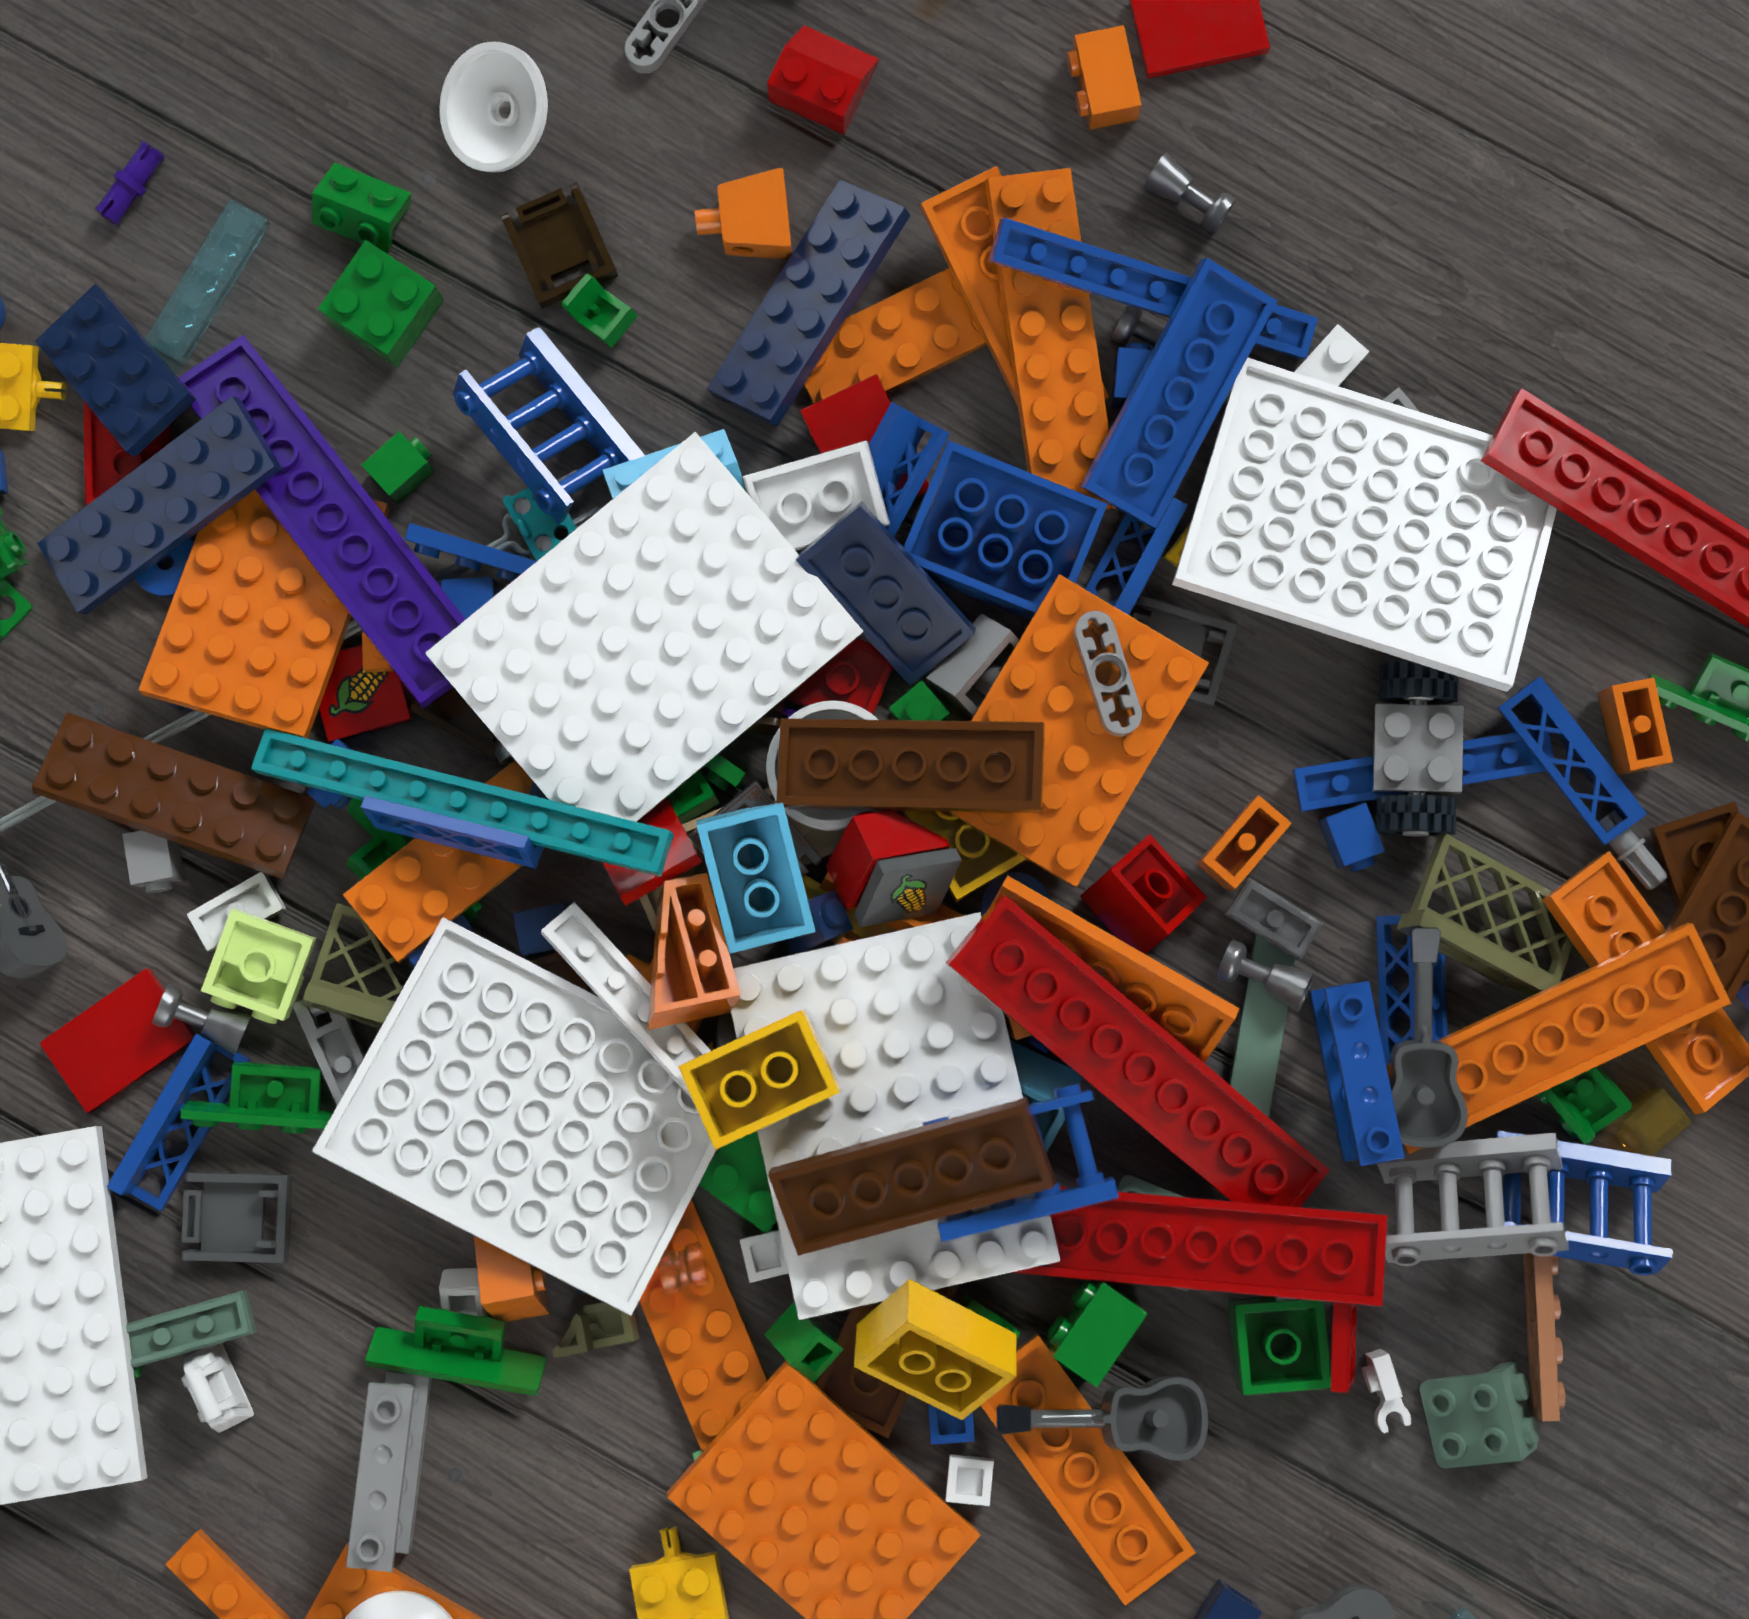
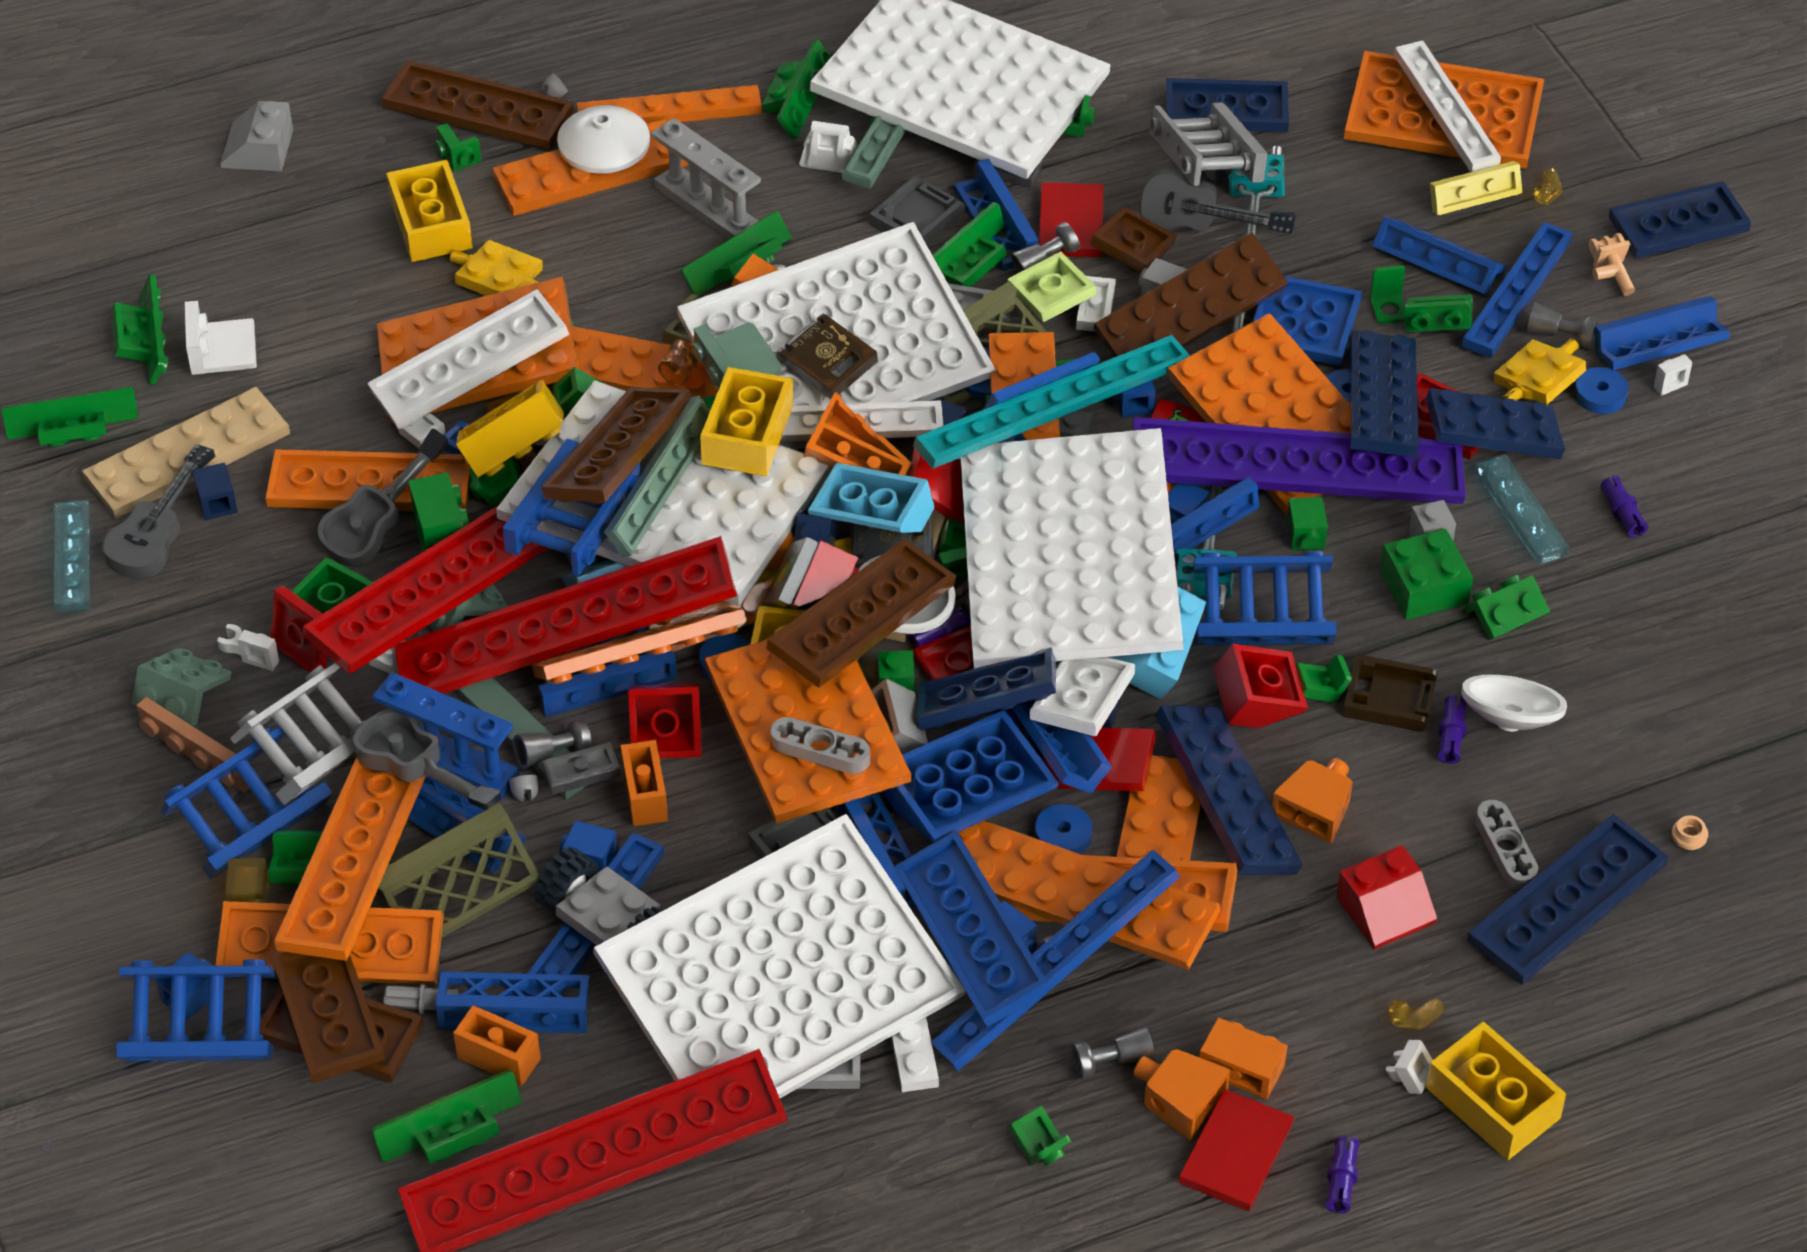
camera: 125 degrees right, 35 degrees down
(90, 668) = (1315, 317): none -> blue plate
(110, 939) = (1133, 239): none -> reddish brown plate
(139, 1515) = (791, 89): none -> green bracket
(312, 339) = (1431, 518): none -> light grey brick
(564, 154) = (1452, 729): none -> dark purple pin
(575, 1103) = (822, 349): none -> dark brown container
(656, 1187) = (737, 348): none -> sand green bracket
(659, 358) = (1259, 686): none -> red slope
(865, 1491) = (468, 359): none -> white plate
(899, 1110) = (658, 478): none -> sand green tile
(972, 407) = (1064, 818): none -> blue piece
(1180, 104) = (1182, 1089): none -> orange torso
(1326, 967) = (524, 784): none -> light grey hinge
(1332, 186) = (1038, 1137): none -> green bracket

